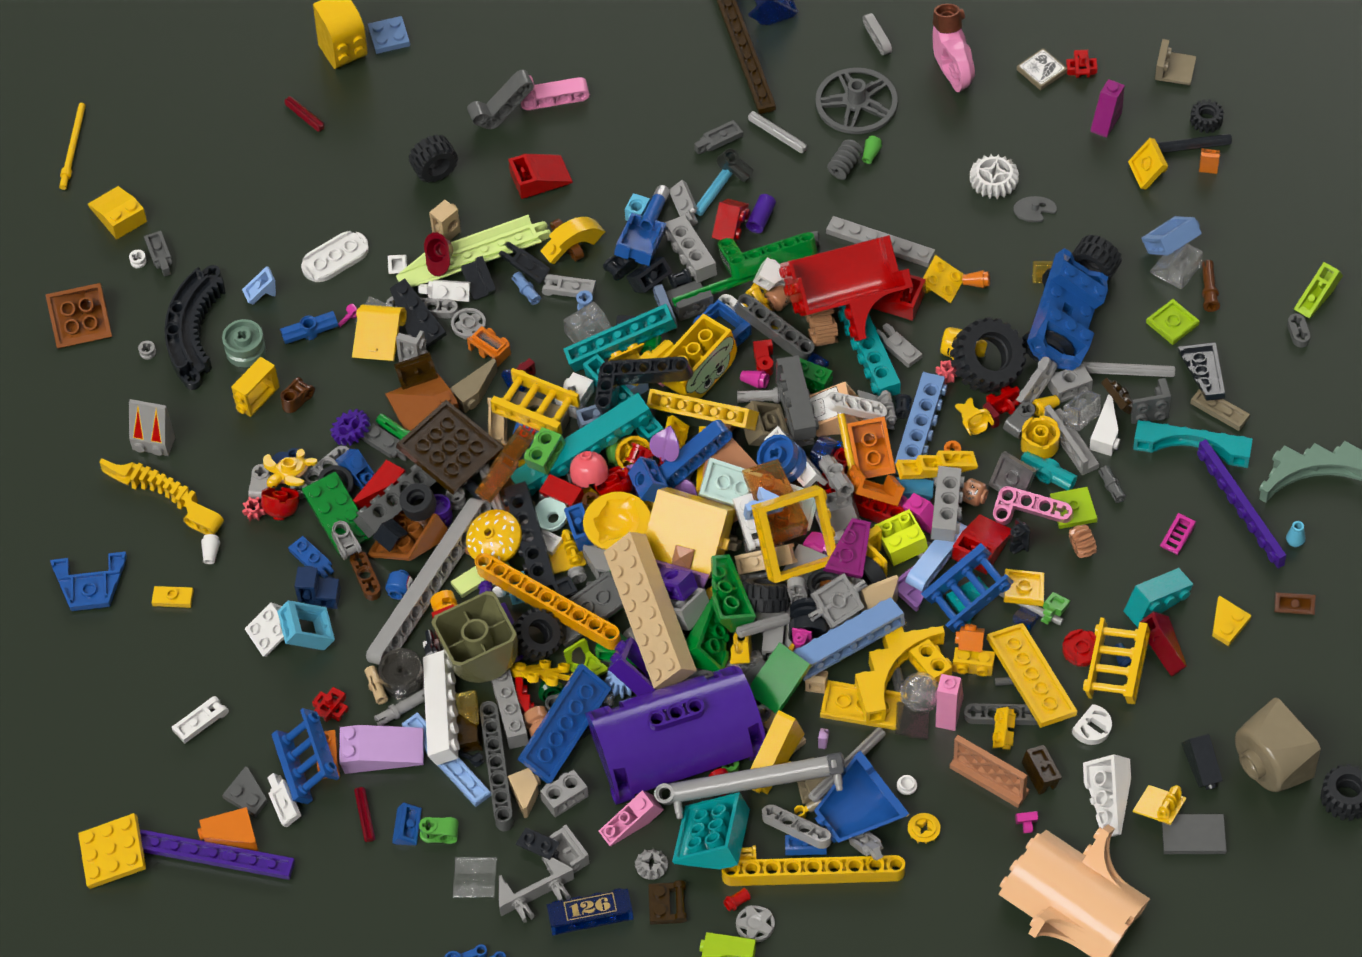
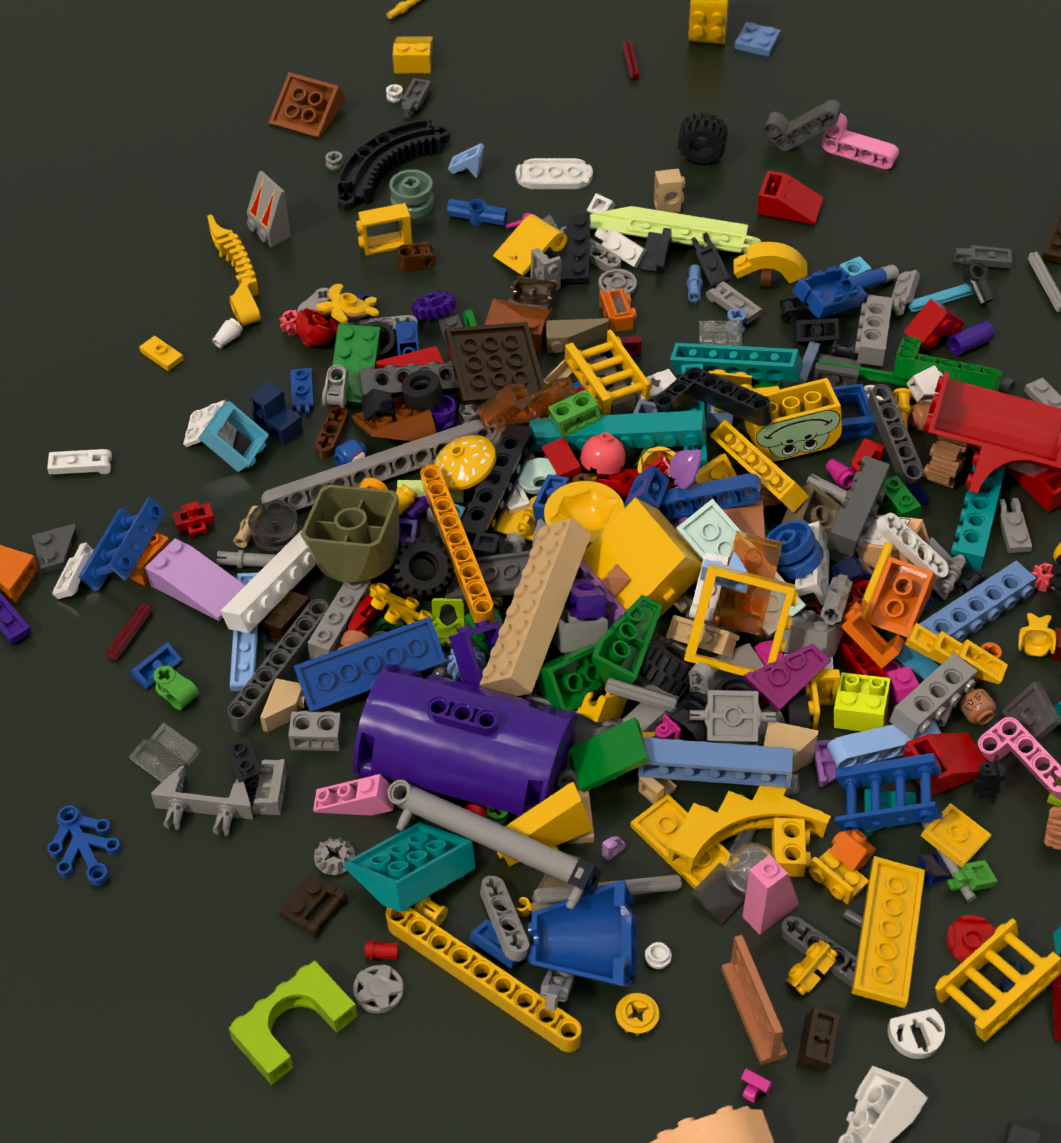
camera: 35 degrees right, 5 degrees down
(89, 589) = (108, 309): blue wing -> none
(437, 253) = (638, 210): dark red piece -> none
(468, 706) = (301, 592): clear yellow slope -> none
(470, 590) = (406, 498): none -> yellow cone
(589, 911) = (231, 860): clear blue brick -> none

